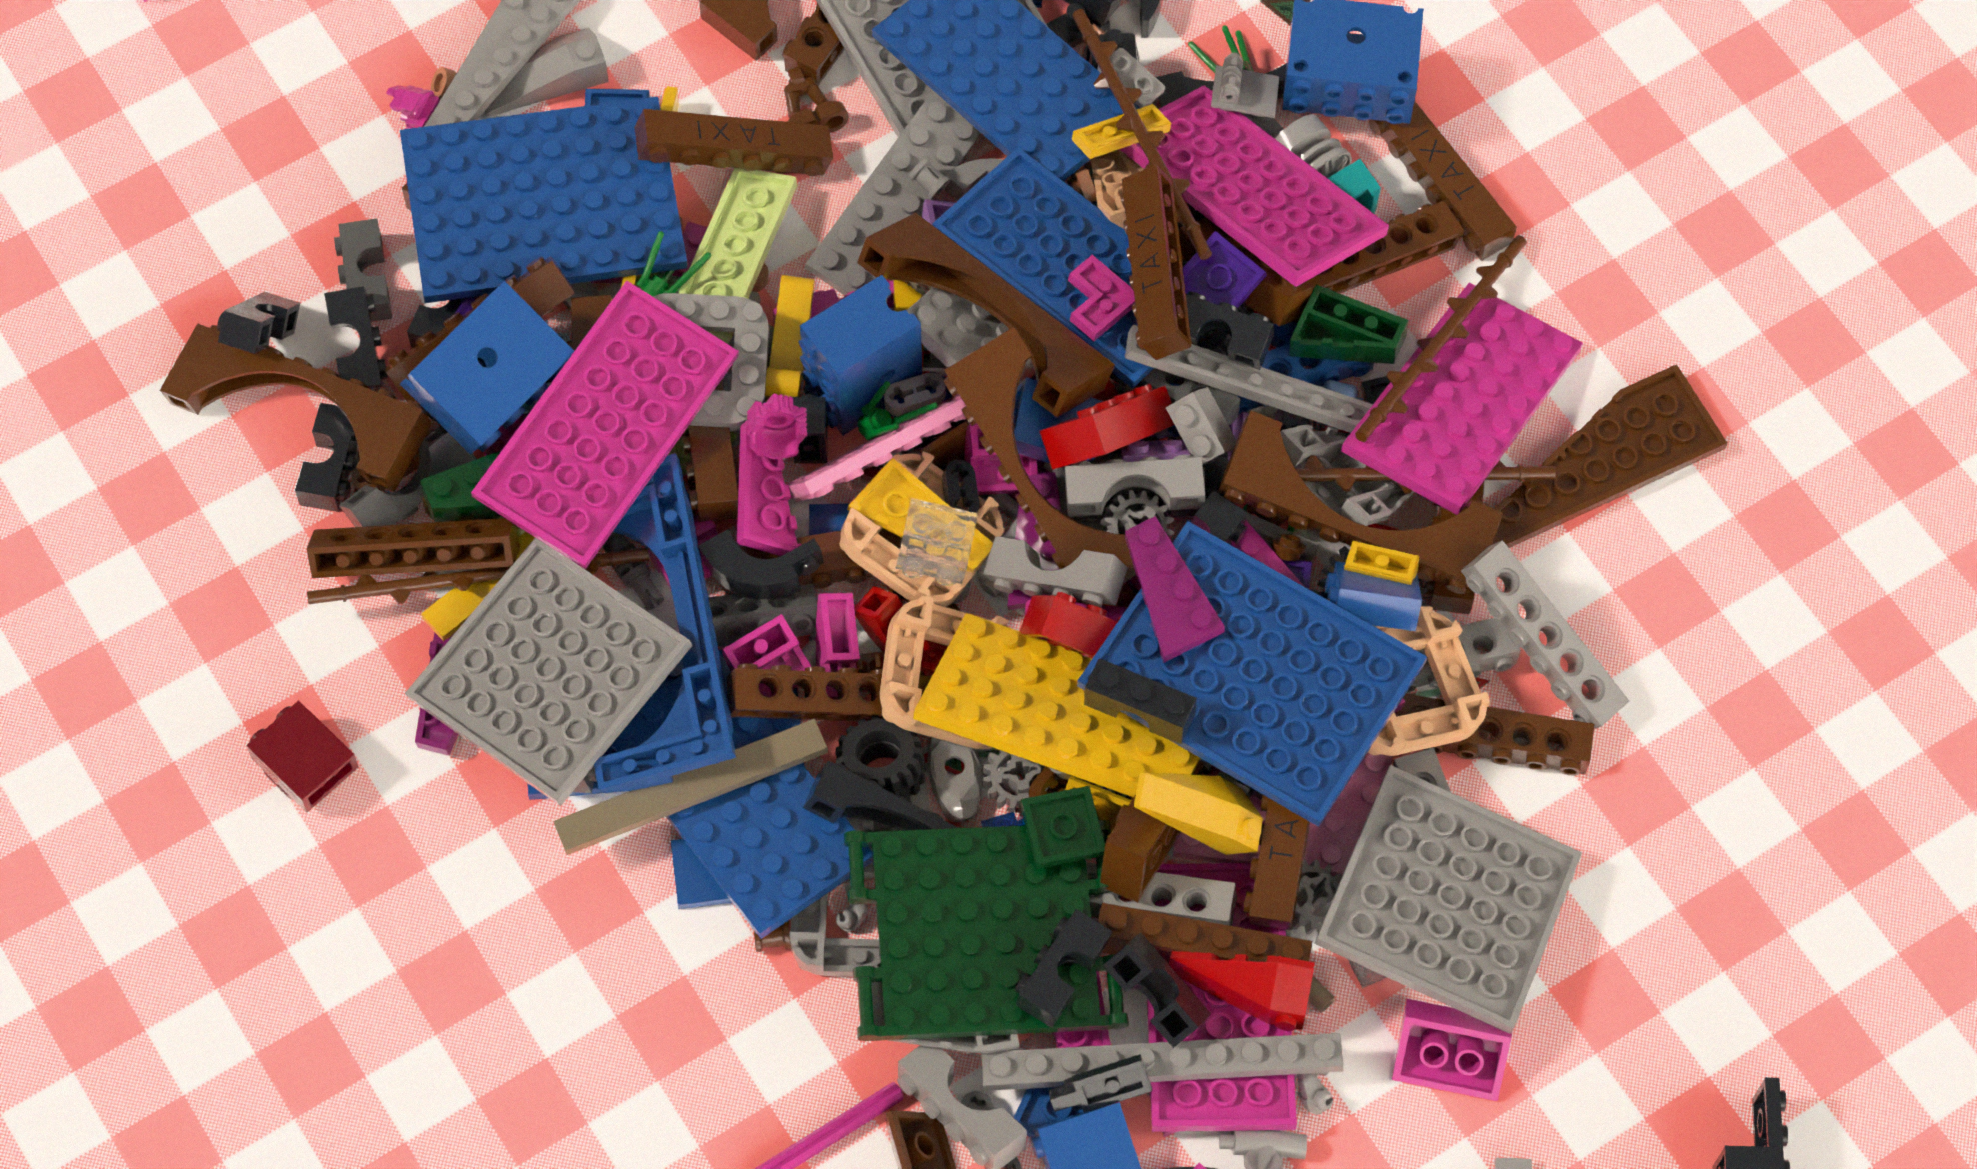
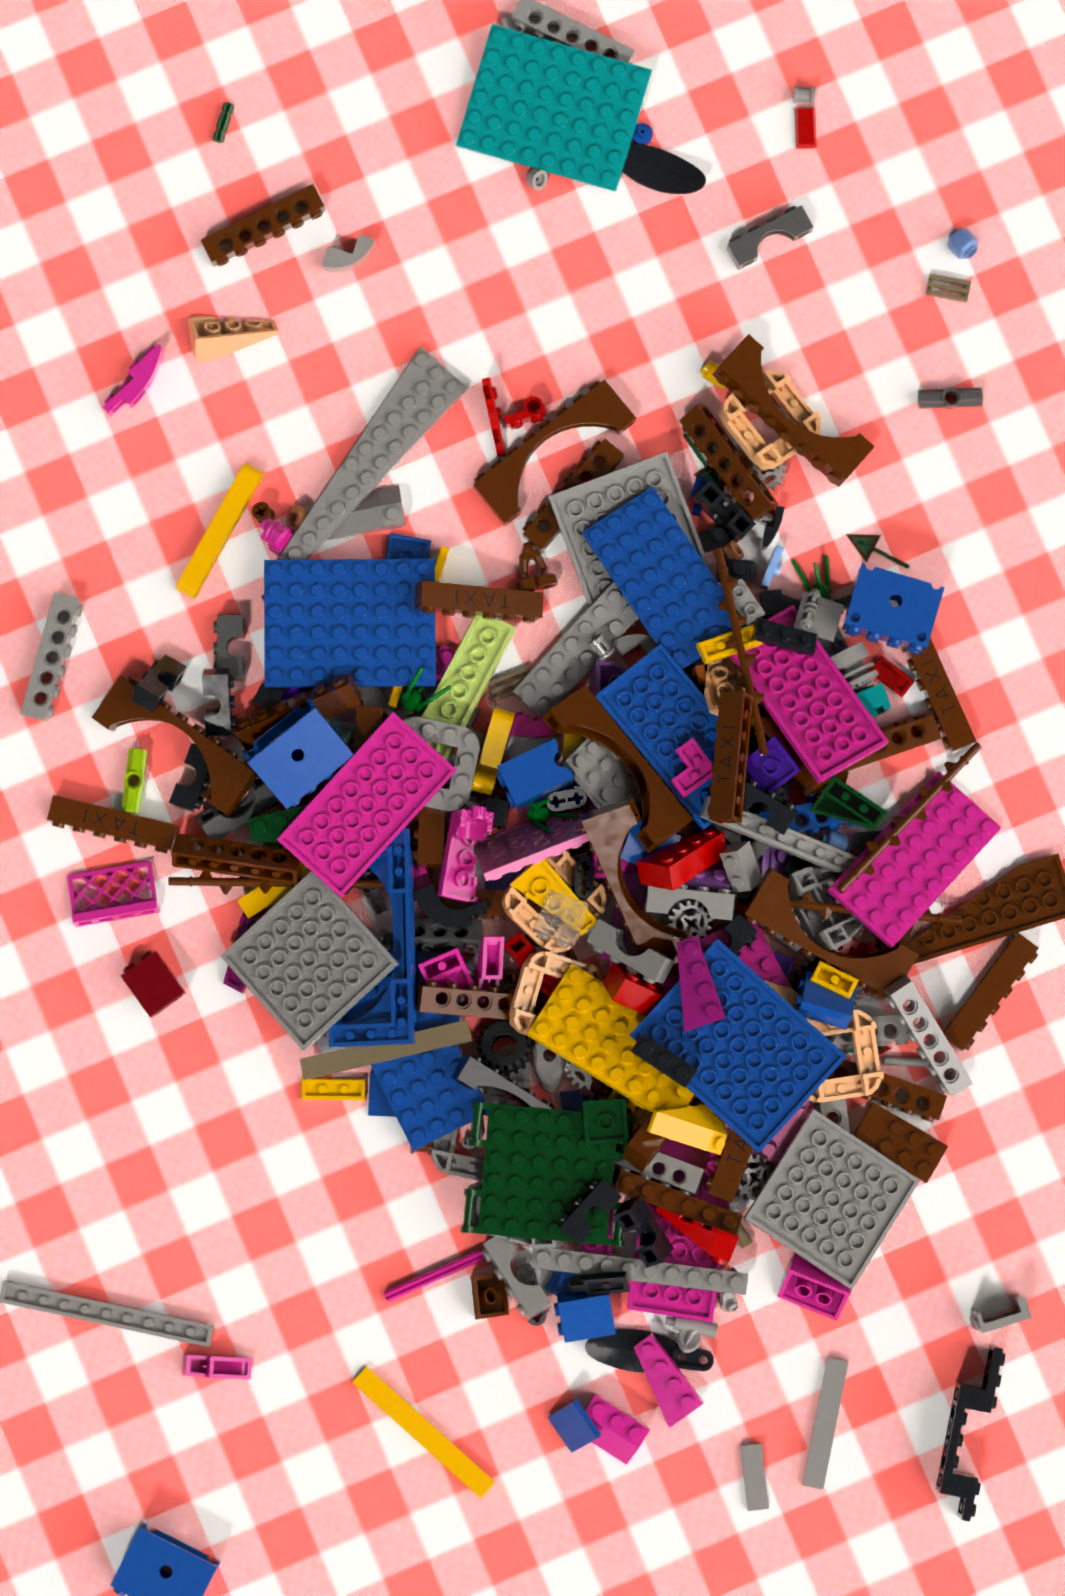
camera: 15 degrees right, 20 degrees up
(95, 250) = (60, 604): none -> light grey brick
(208, 538) = (111, 822): none -> reddish brown brick
(228, 663) = (120, 910): none -> dark pink fence
(237, 491) = (135, 767): none -> lime piece
(327, 121) = (219, 530): none -> yellow beam
(394, 78) = (257, 512): none -> reddish brown bush
(615, 876) = (333, 1089): none -> yellow tile
(793, 259) = (505, 686): none -> dark tan tile
(1164, 49) = (773, 567): none -> light blue plate
(1201, 113) = (784, 636): none -> black plate
(1288, 547) = (781, 948): reddish brown plate -> none
(1384, 172) = (892, 676): none -> red tile
(1521, 694) = (905, 1061): none -> light grey bar
(1541, 802) = (900, 1142): none -> reddish brown brick
(1625, 565) = (990, 991): none -> reddish brown brick
(1789, 1026) = (1020, 1314): none -> light grey panel

